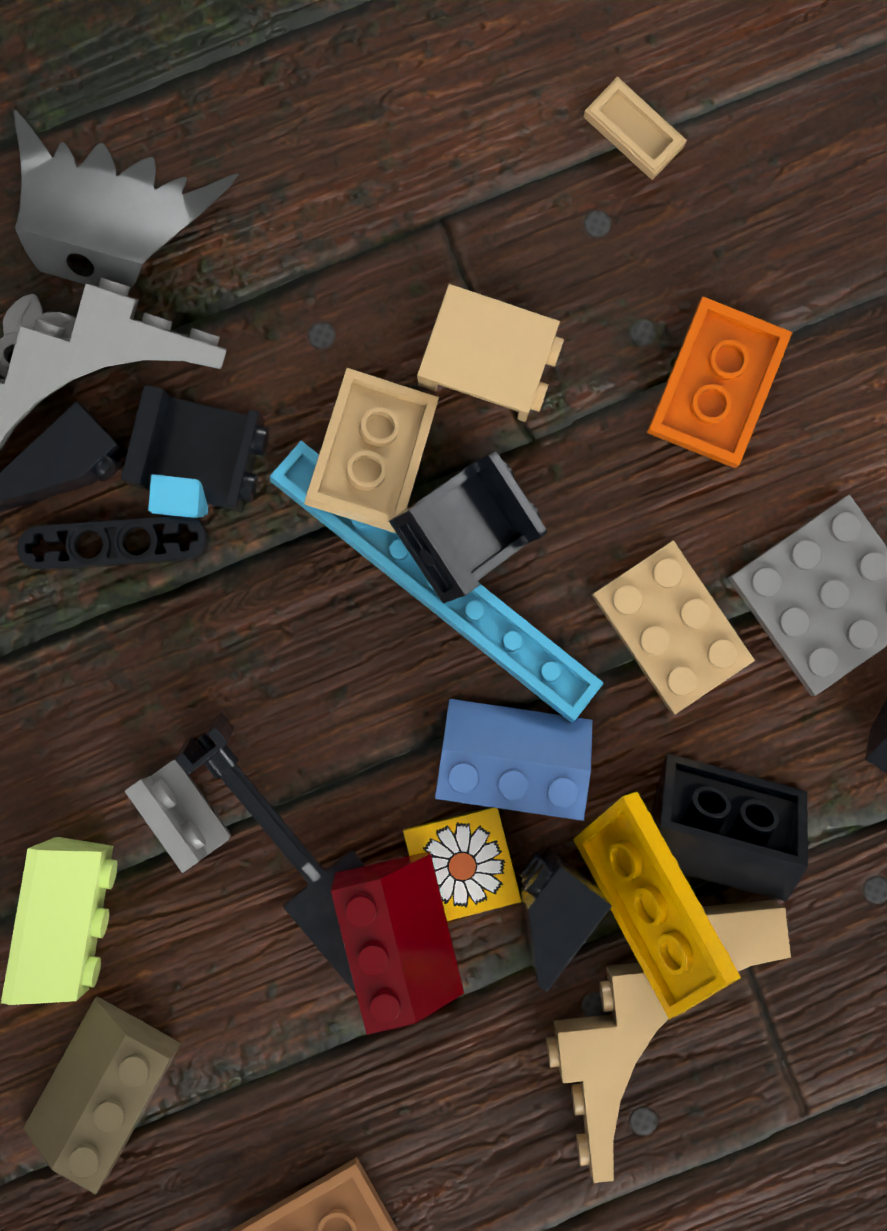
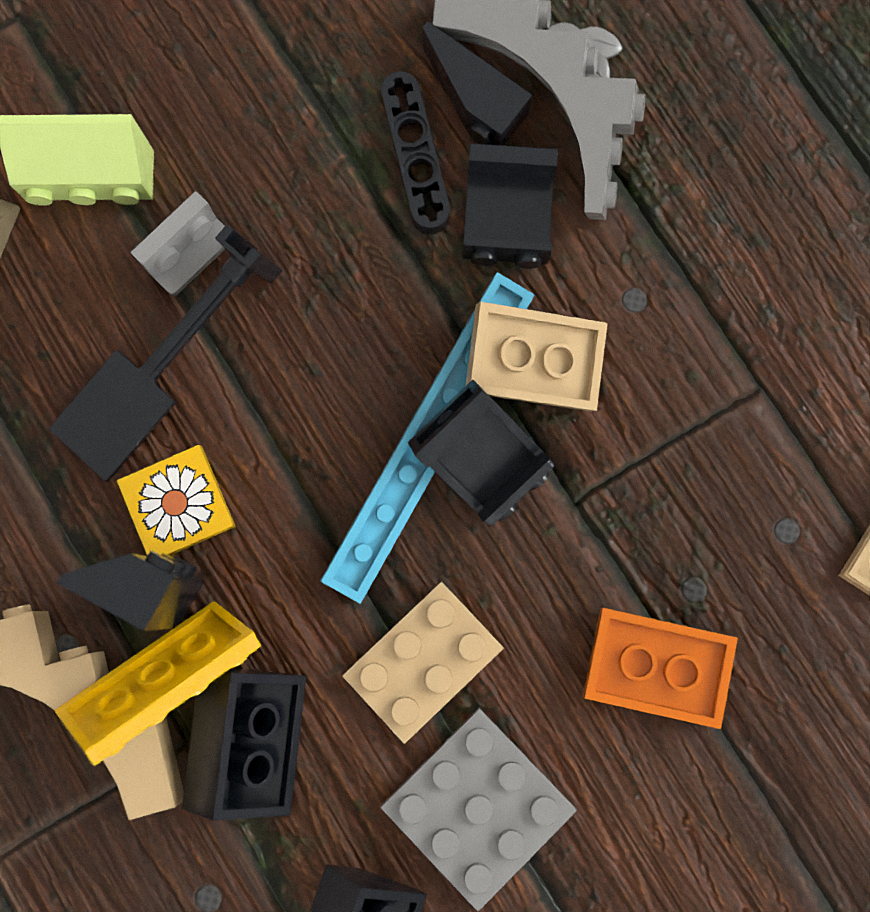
camera: 80 degrees right, 5 degrees down
(96, 213) = (705, 88): dark grey piece -> none
(177, 496) = (463, 194): medium azure slope -> none
(396, 941) = (97, 452): dark red slope -> none
(490, 351) = (647, 449): tan panel -> none
(515, 760) = (276, 533): medium blue slope -> none

